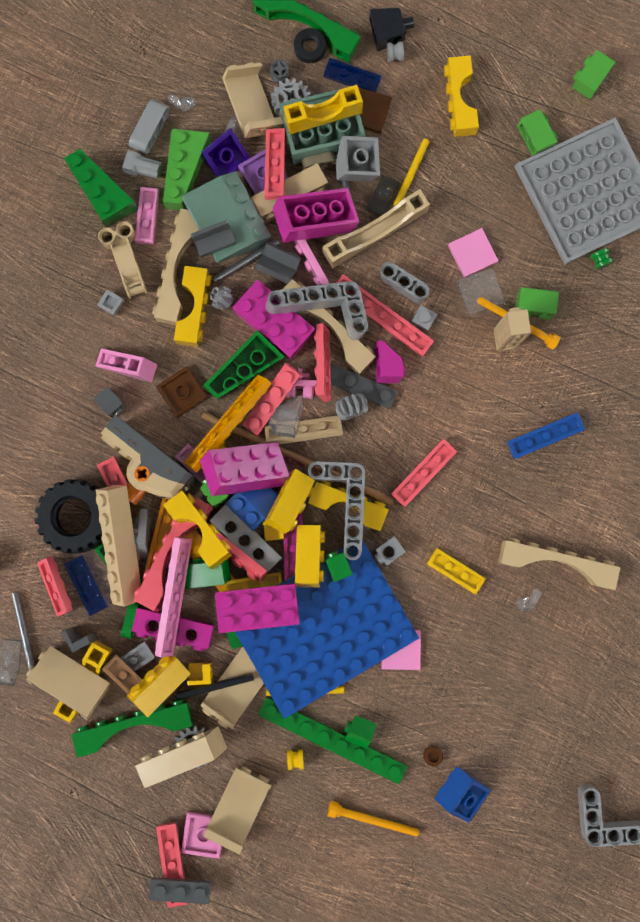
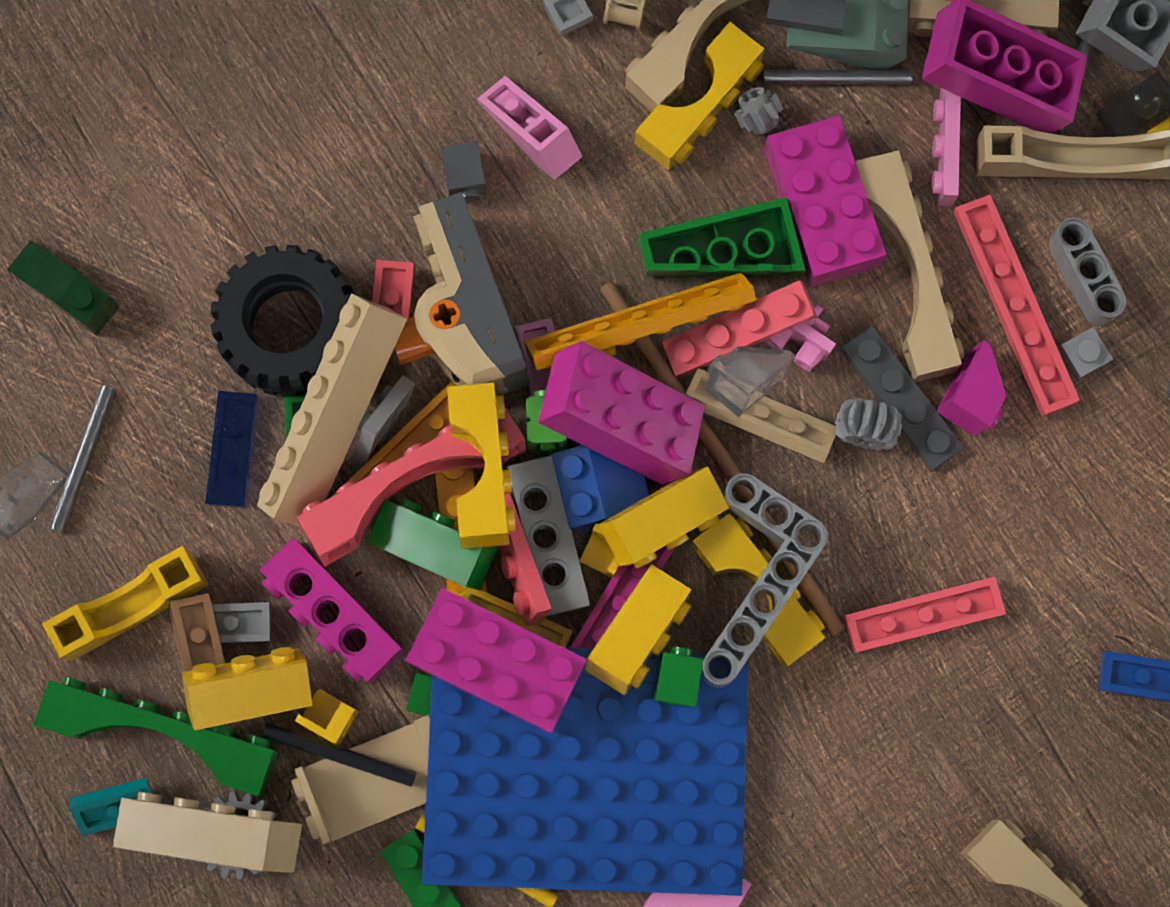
camera: 35 degrees right, 5 degrees down
(55, 586) = (180, 417): coral plate -> none
(68, 682) = (101, 589): tan panel -> none
(74, 641) = (155, 529): dark grey panel -> none
(128, 773) = (100, 808): none -> teal plate
(129, 620) = (265, 550): green beam -> none
(173, 596) = (366, 554): bright pink plate -> none
(182, 392) = (594, 227): reddish brown tile -> none
(278, 263) = (891, 111): dark grey panel -> none
(321, 292) = (929, 217): light grey beam -> none
(323, 368) = (869, 313): coral plate -> none
(395, 545) = (799, 711): light grey brick -> none
(456, 571) = (877, 821): yellow tile -> none

